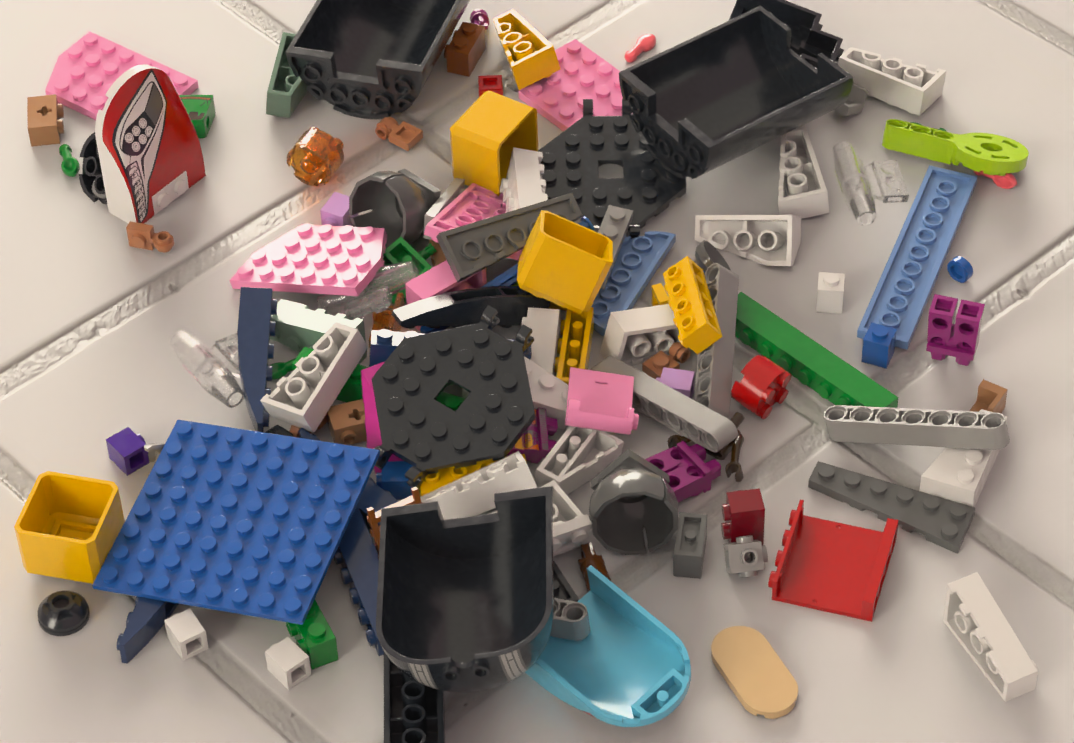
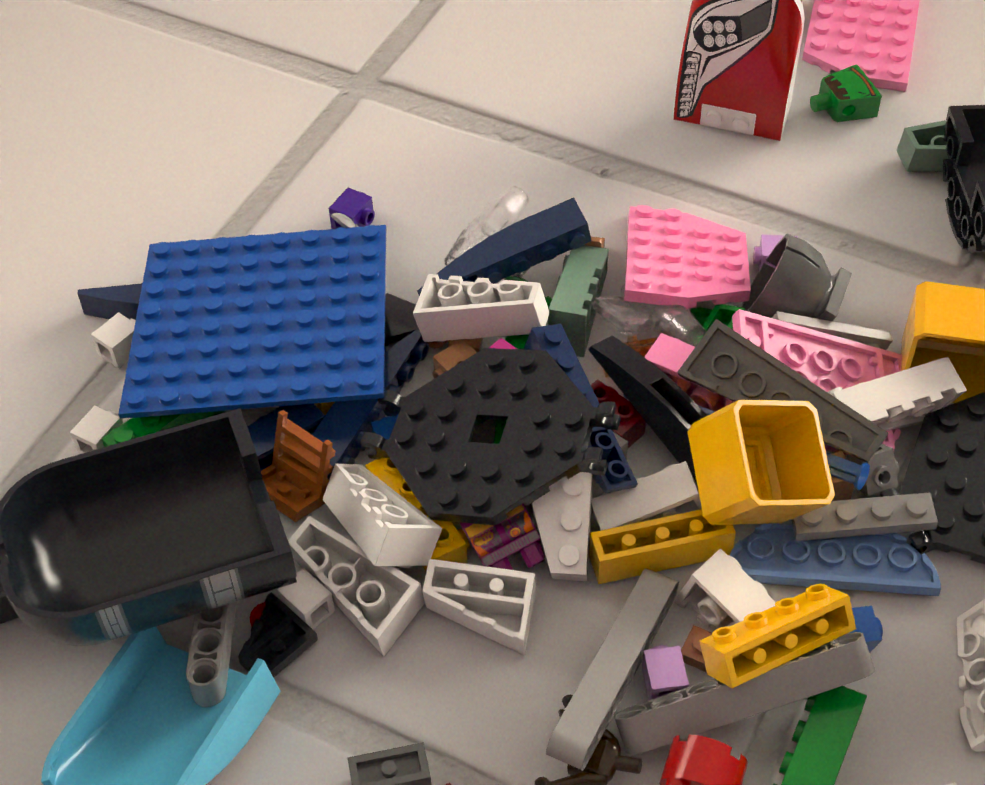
camera: 70 degrees right, 5 degrees up
(63, 620) = (133, 250): black piece -> none
(69, 526) = (206, 192): yellow plate -> none
(143, 237) = (651, 120): nougat plate -> none
(316, 157) = (843, 203): clear orange brick -> none
(402, 135) = (942, 263): nougat plate -> none
(571, 534) = (346, 632): white plate -> none
(590, 558) = (324, 679): reddish brown hinge -> none
(600, 401) = (562, 592): bright pink door -> none
(629, 498) = (410, 680): dark grey plate -> none
(686, 469) = (509, 725): magenta hips -> none
(707, 254) = (920, 649): dark grey piece -> none

